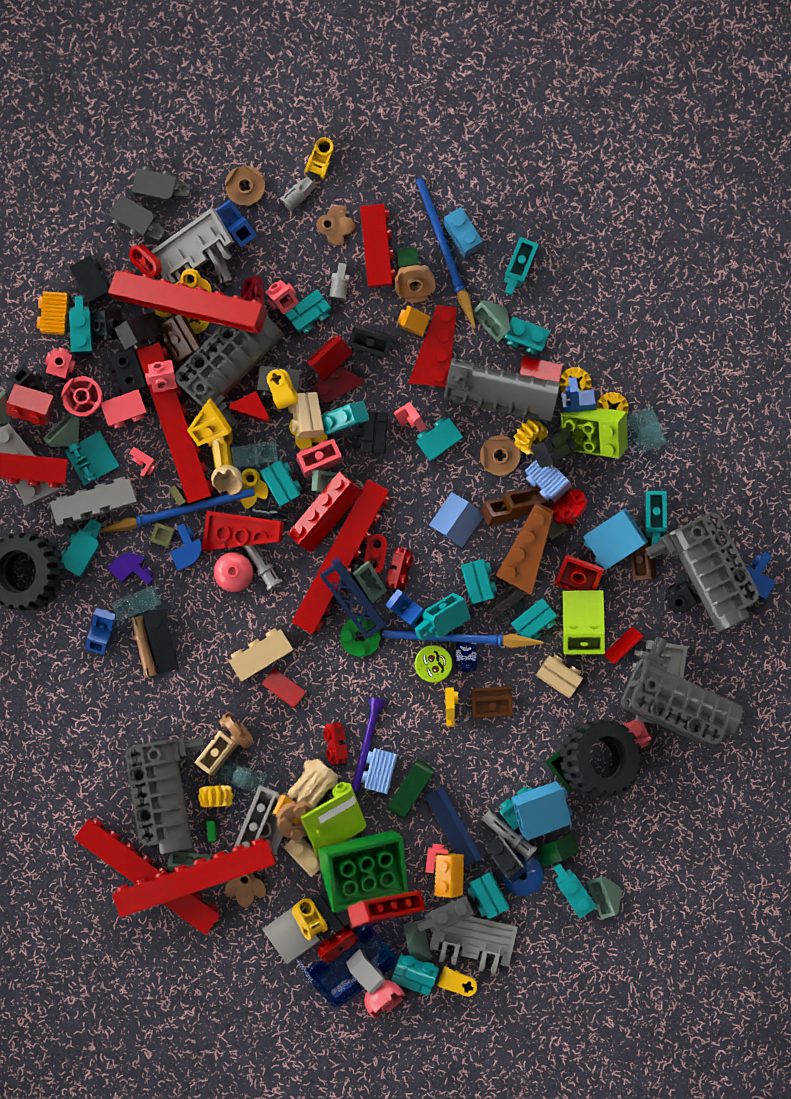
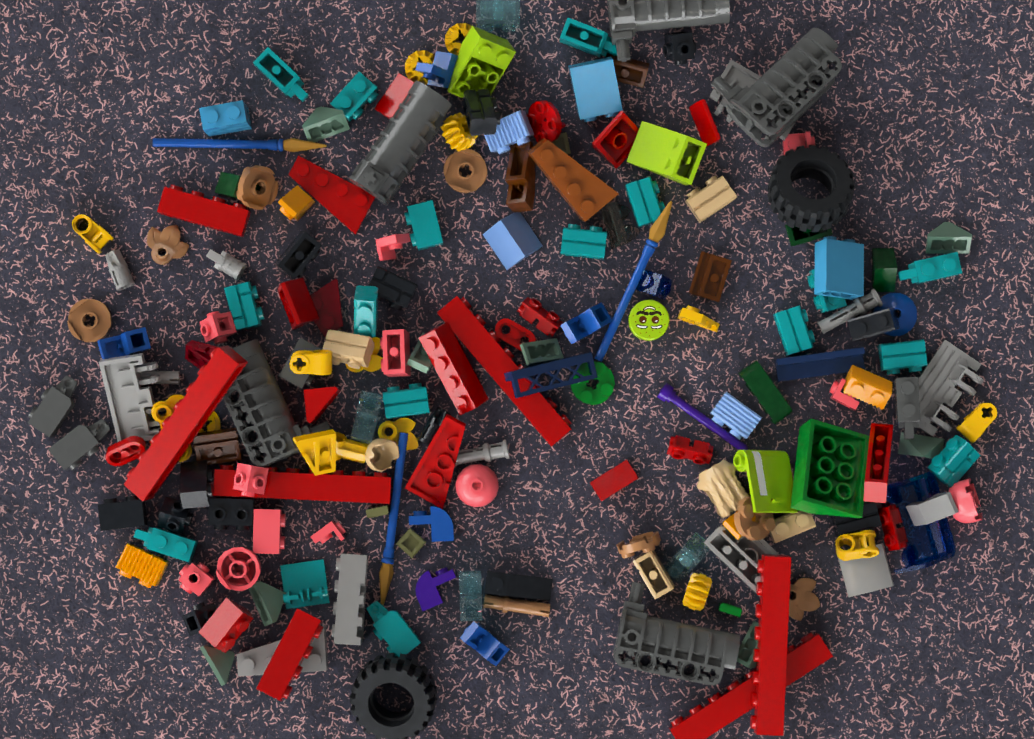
camera: 70 degrees left, 0 degrees up
(260, 654) = (571, 490): tan brick -> none
(443, 617) = (606, 291): teal hinge -> none
(474, 792) = (793, 330): none -> teal brick

